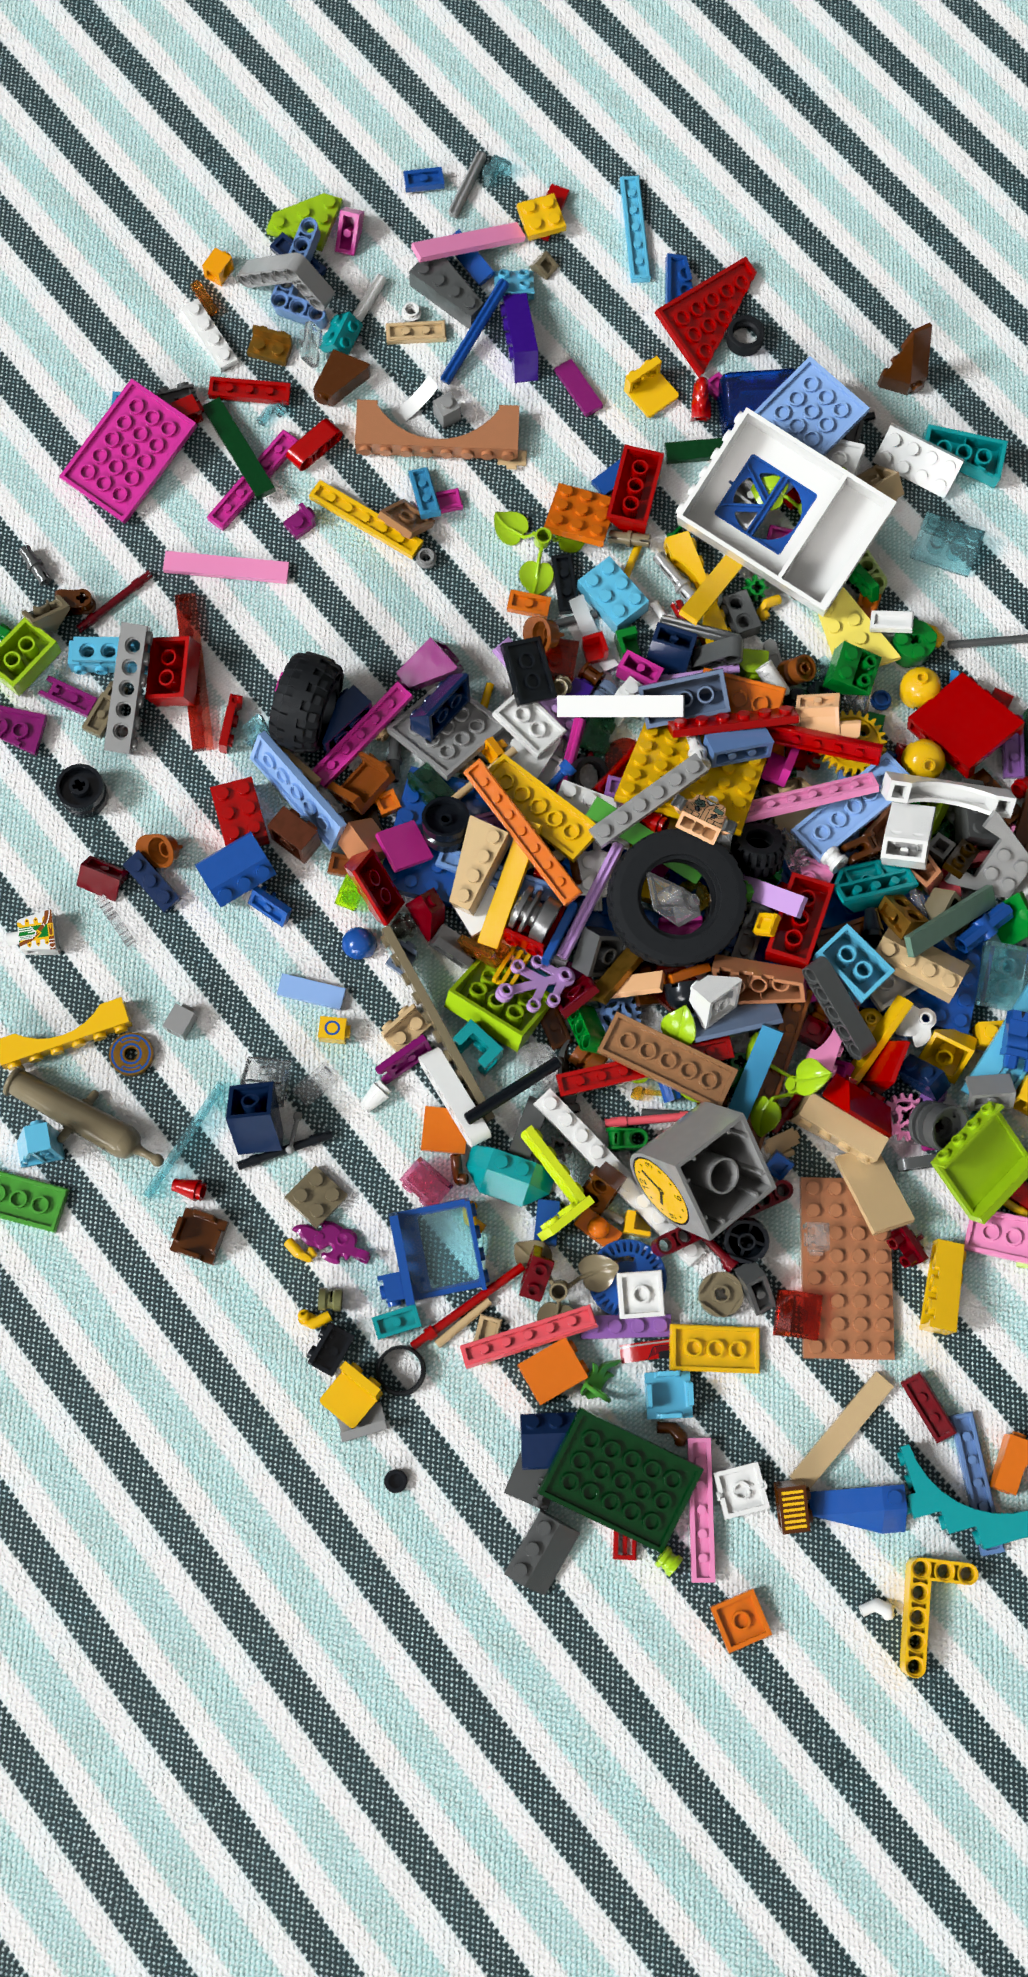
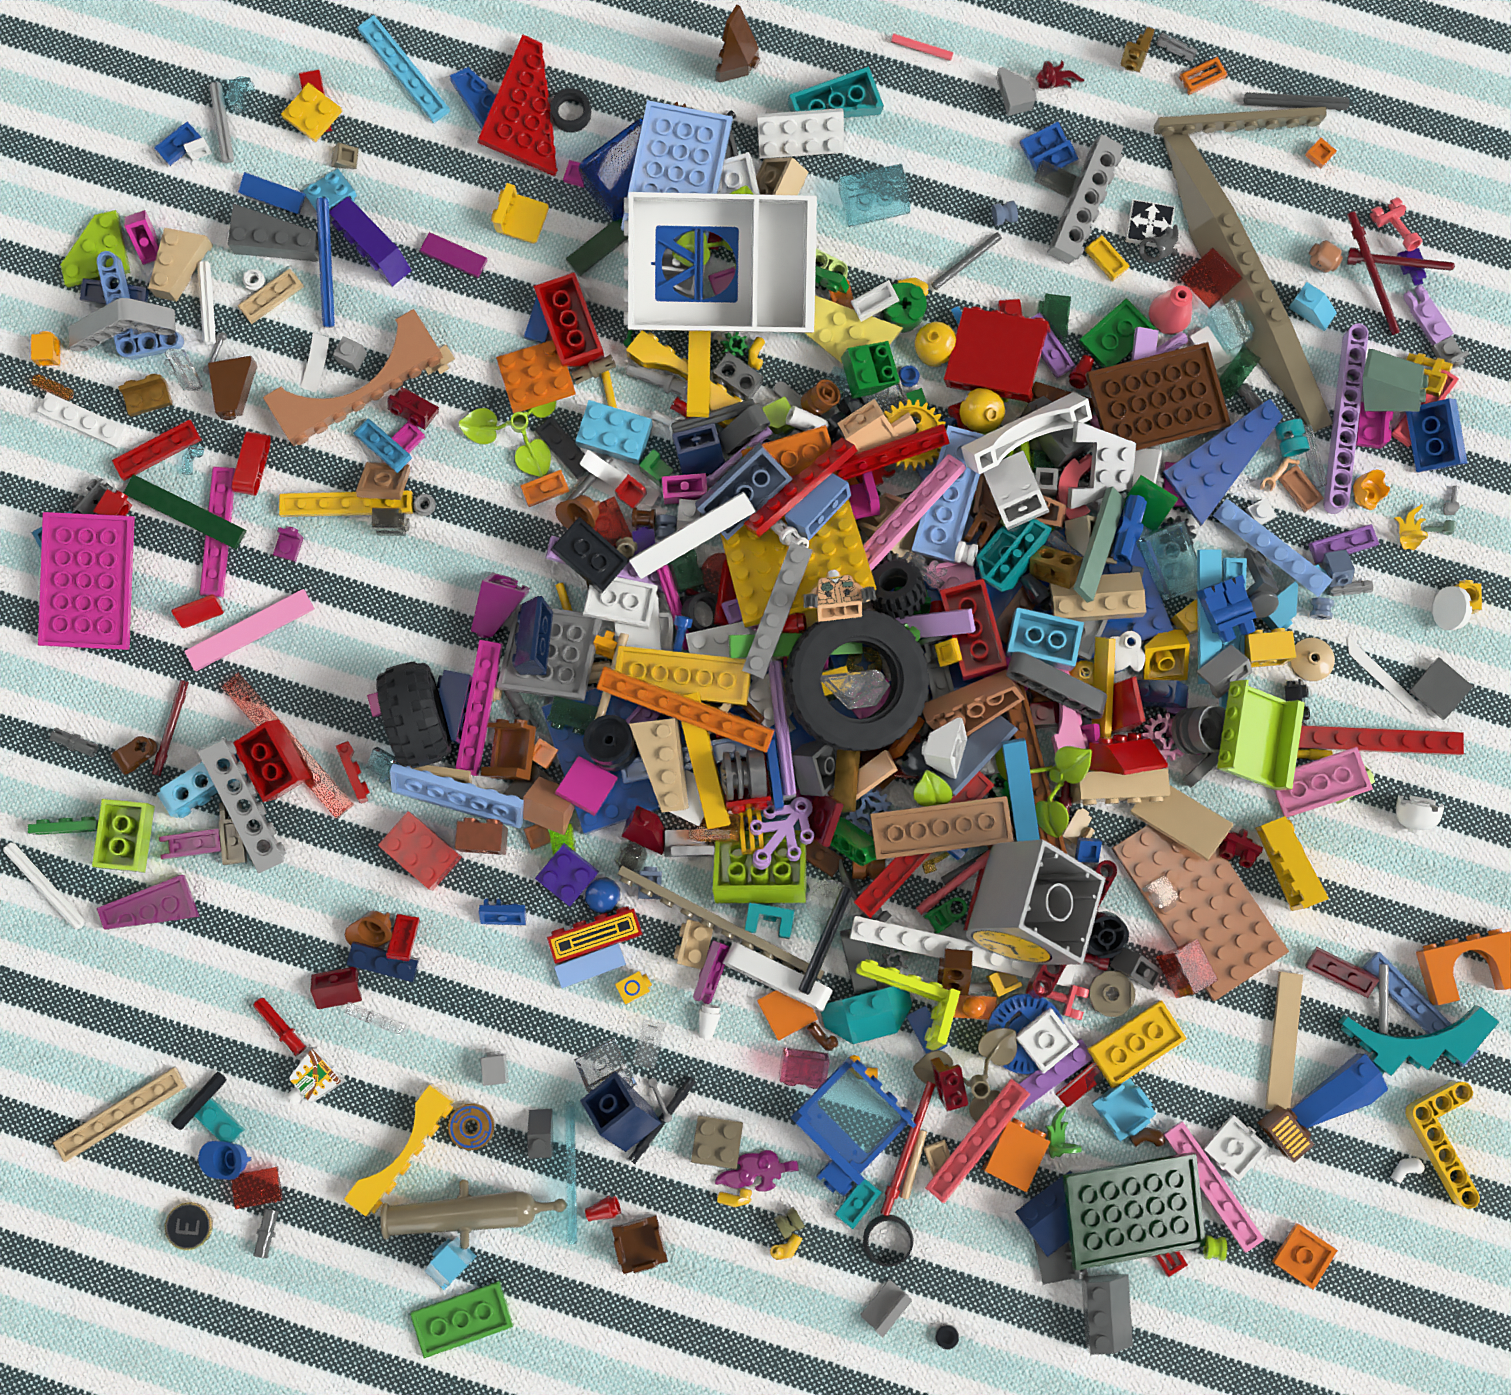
camera: 30 degrees left, 5 degrees up
(38, 878) = (279, 1026): none -> red axle
(49, 615) = (120, 783): dark tan slope -> none
(82, 790) = (251, 917): black wheel -> none
(179, 873) = (403, 937): none -> red plate
(181, 1095) = (540, 1133): none -> dark grey slope
(196, 527) = (198, 611): none -> red slope
(235, 869) = (451, 904): blue slope -> none
(330, 1349) = (819, 1264): black bracket -> none
(331, 969) = (595, 935): none -> brick
(341, 333) = (204, 342): teal bracket -> none
(341, 908) = (566, 874): none -> dark purple plate
(351, 1395) = (862, 1292): yellow bracket -> none
(361, 263) = (176, 262): none -> tan wedge
(374, 885) = (585, 838): red slope -> none
(389, 551) = (390, 522): none -> clear smoke brick
(435, 191) = (197, 148): none -> white tile
(467, 480) = (412, 408): none -> dark red bracket
(468, 242) = (262, 181): bright pink tile -> none
(677, 1288) = (1067, 999): none -> coral bar
(700, 401) = (573, 201): red animal -> none
(950, 1452) = (1383, 997): none -> light grey bar
(961, 858) = (1071, 480): dark brown plate -> none

